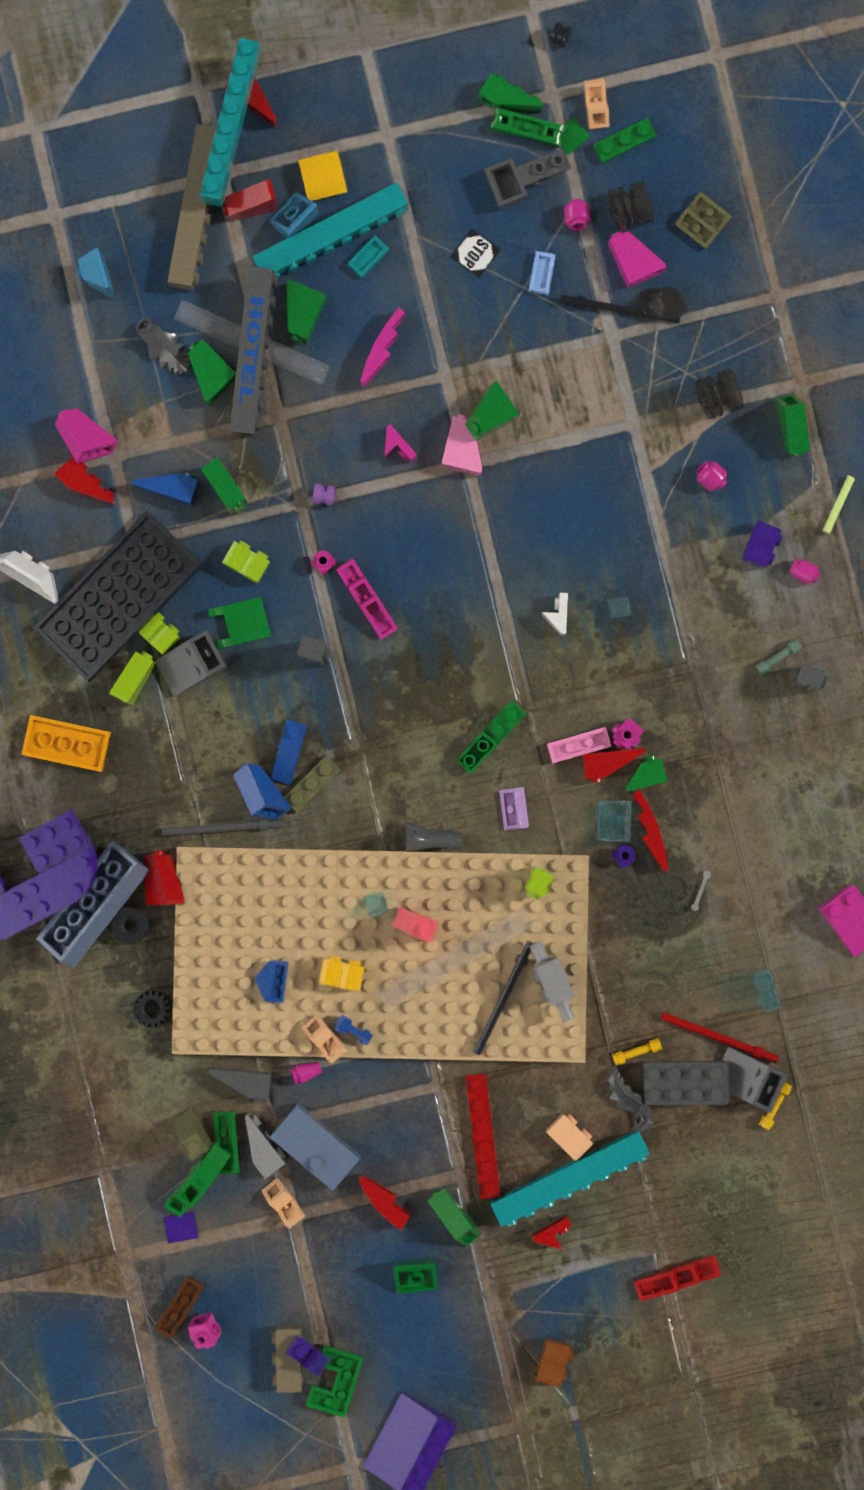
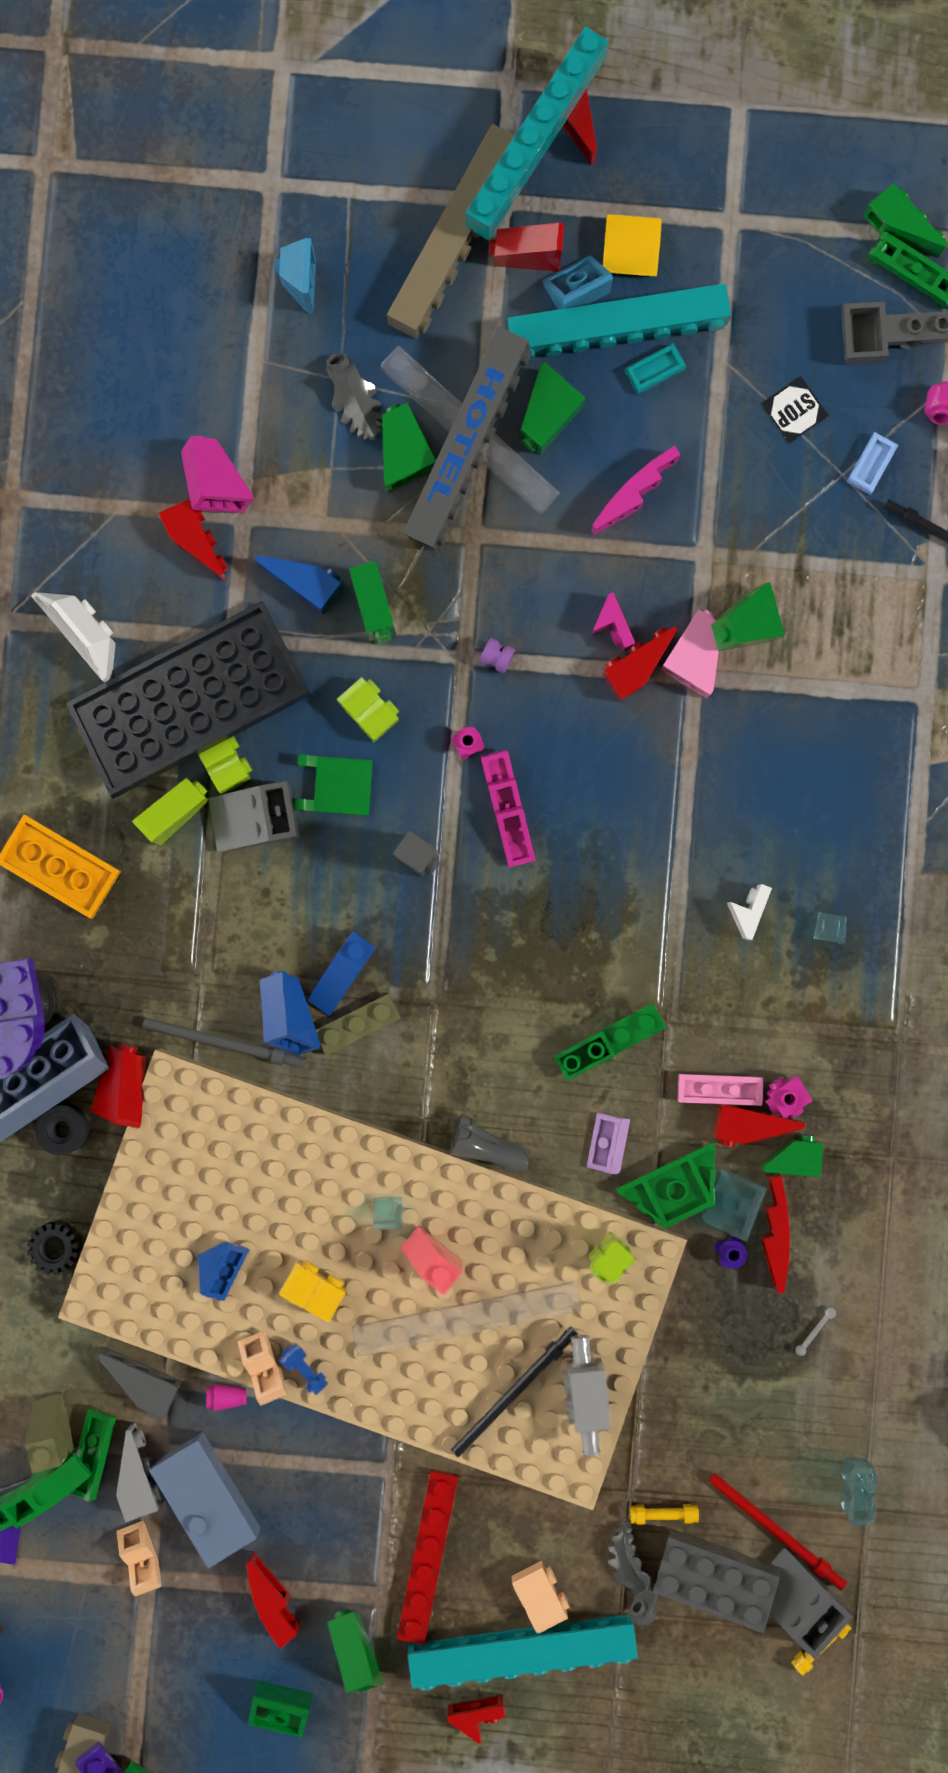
camera: 15 degrees right, 0 degrees up
(422, 474) = (632, 672): none -> red slope
(570, 824) = (675, 1188): none -> green wing

